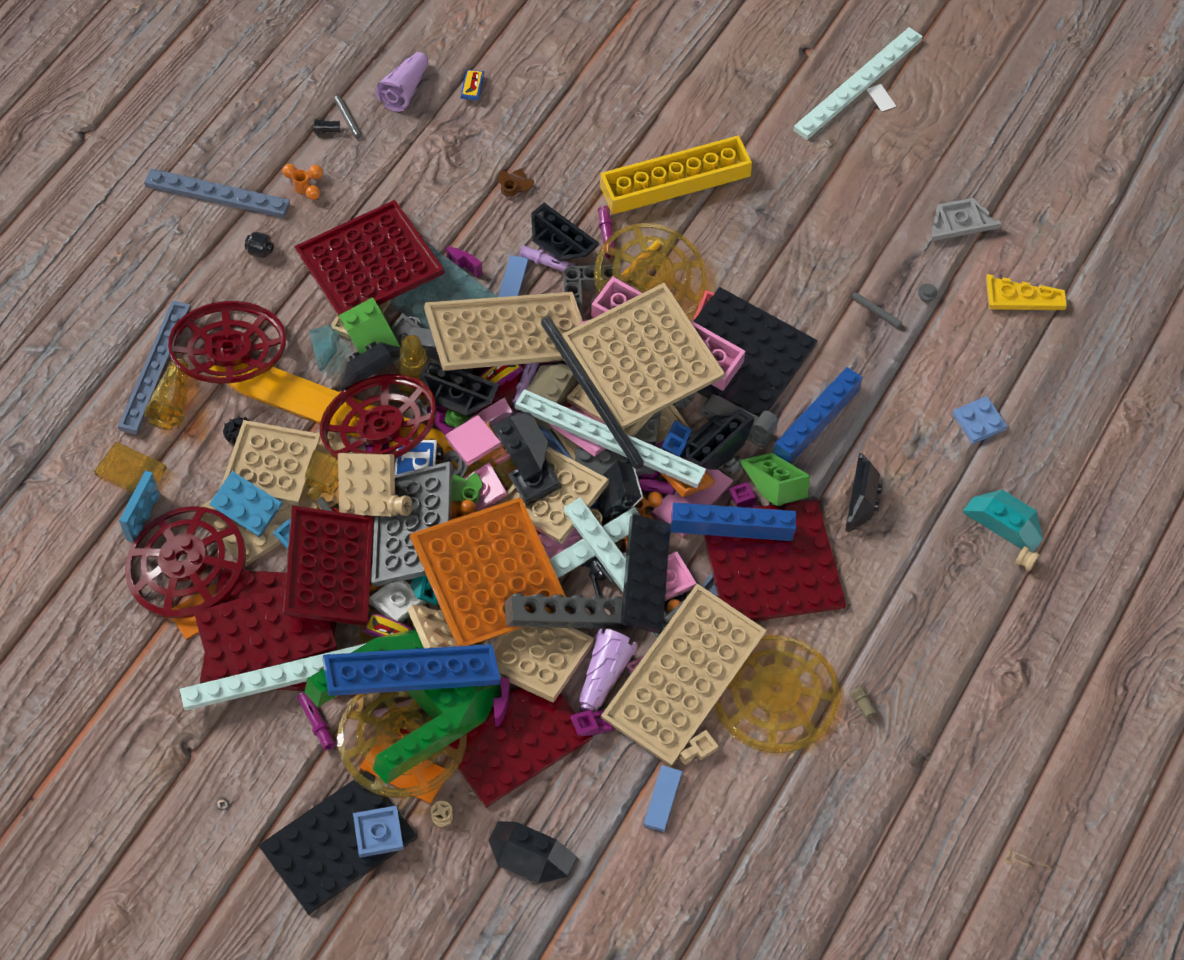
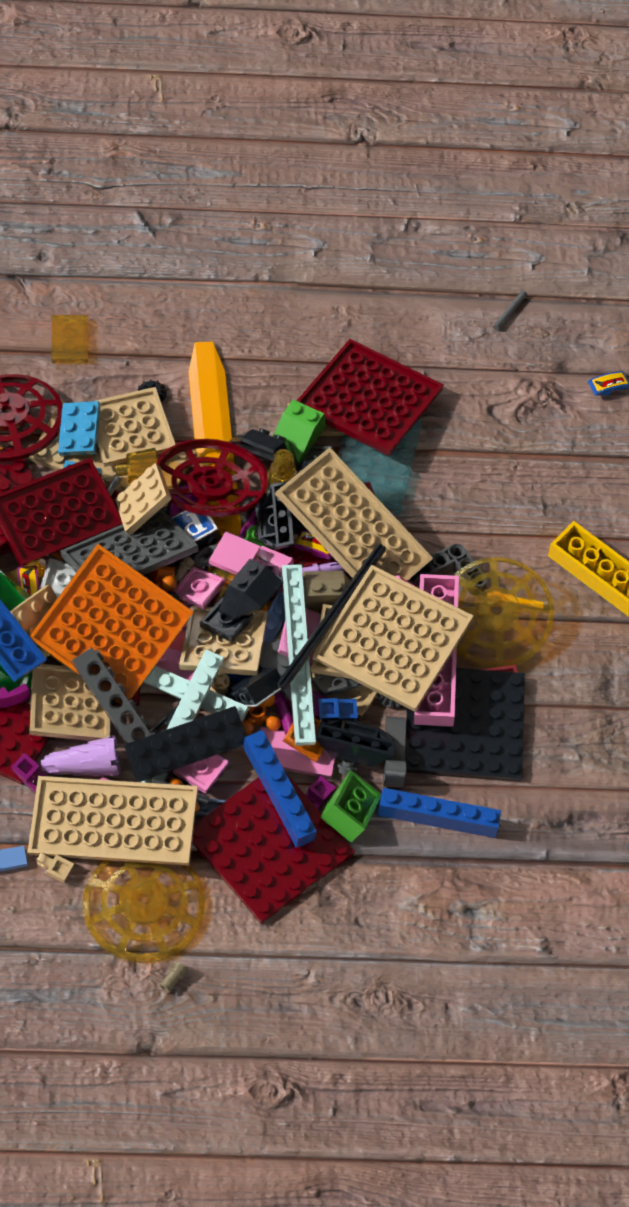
camera: 55 degrees right, 0 degrees up
(139, 506) = (35, 359): dark azure plate -> none
(152, 371) = (172, 304): sand blue plate -> none
(169, 398) = (149, 326): clear yellow cone -> none
(216, 343) = (221, 333): dark red dish -> none
(217, 193) = (368, 260): sand blue plate -> none
(259, 244) = (333, 313): black head -> none
(302, 178) = (418, 311): orange piece -> none
(322, 126) = (485, 296): black pin -> none
(323, 345) = (266, 408): clear light blue slope -> none
(400, 85) = (572, 329): lavender cone -> none
(400, 505) = (138, 527): tan wheel -> none
(464, 259) = (418, 465): magenta slope -> none
(464, 488) = (189, 572): bright green plate -> none
(513, 276) = (426, 513): medium blue tile -> none
(514, 182) = (530, 465): reddish brown plate -> none
(539, 256) = (463, 521): lavender pin -> none
(559, 235) = (488, 521): black wedge -> none
(606, 225) = (529, 556): magenta pin -> none
(864, 493) = (380, 885): black wedge -> none
(877, 310) = (589, 813): dark grey bar -> none
(979, 420) = (525, 951): medium blue plate -> none
(1007, 518) = (433, 1019): teal wedge -> none
(1027, 558) = (398, 1051): tan wheel -> none

